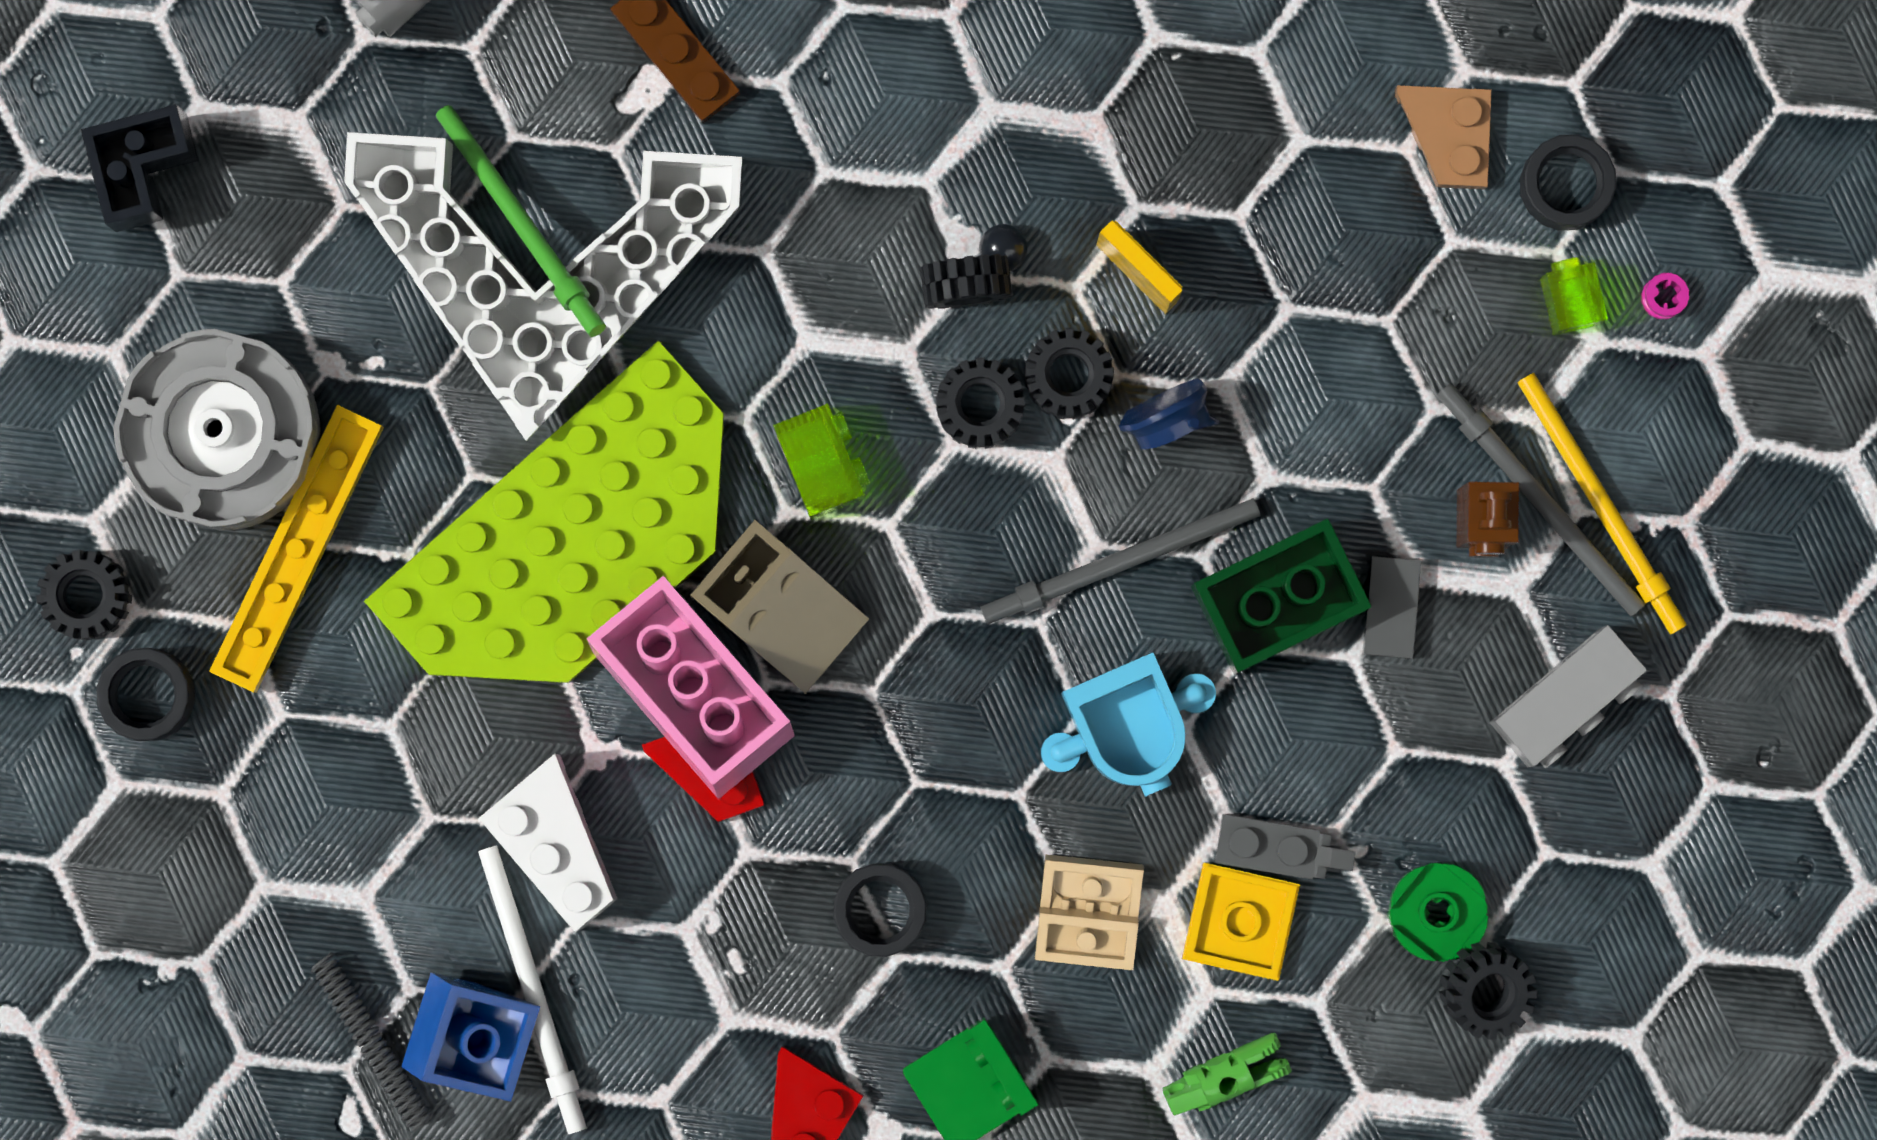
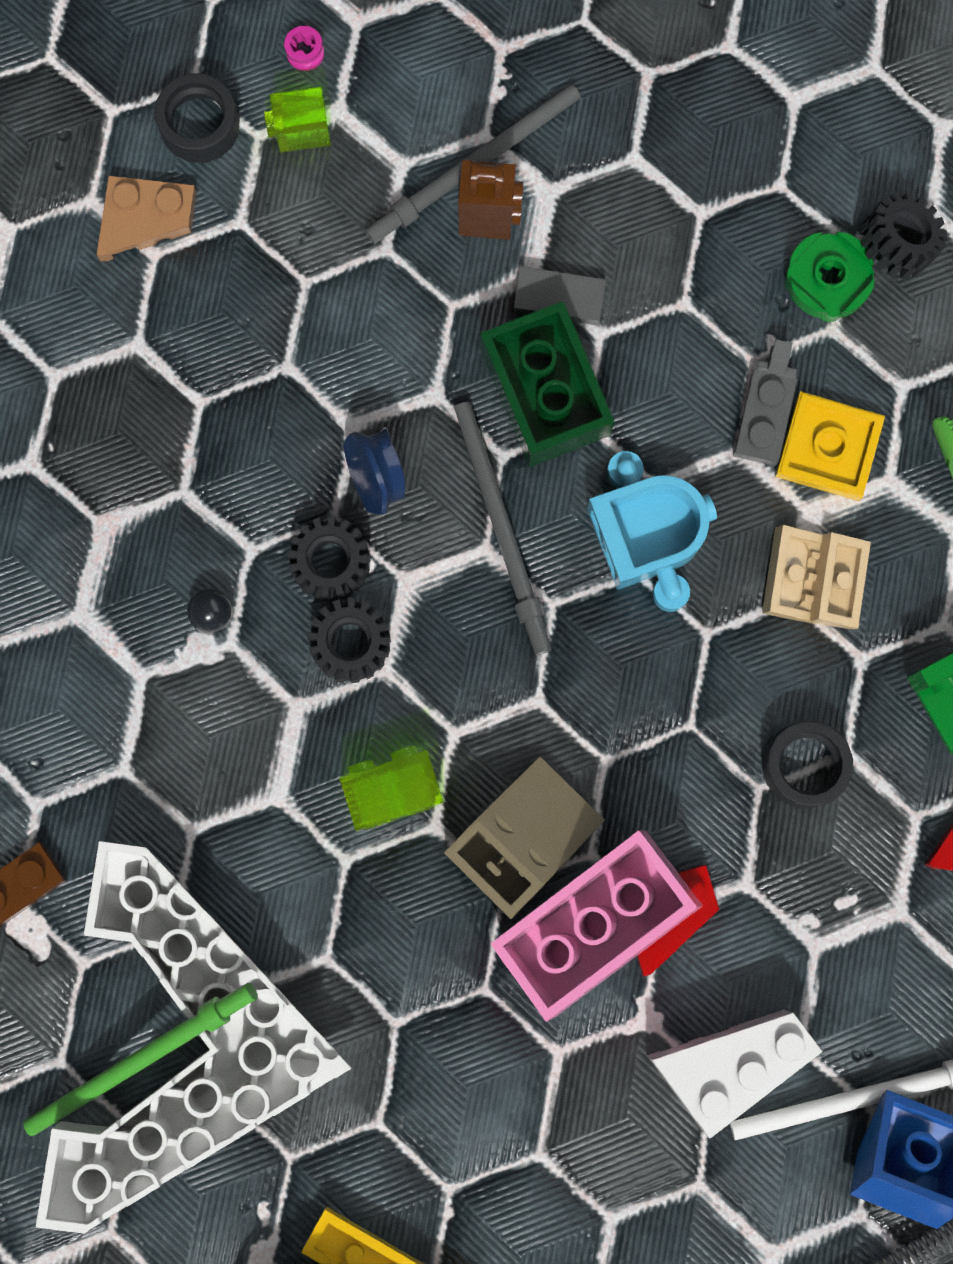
camera: 90 degrees left, 5 degrees down
(568, 535) = (443, 1035): lime plate -> none
(966, 281) = (236, 643): black tyre -> none
(1139, 266) = (237, 484): yellow tile -> none
(1569, 698) = (649, 150): light grey brick -> none
(1651, 586) = (554, 78): yellow bar -> none

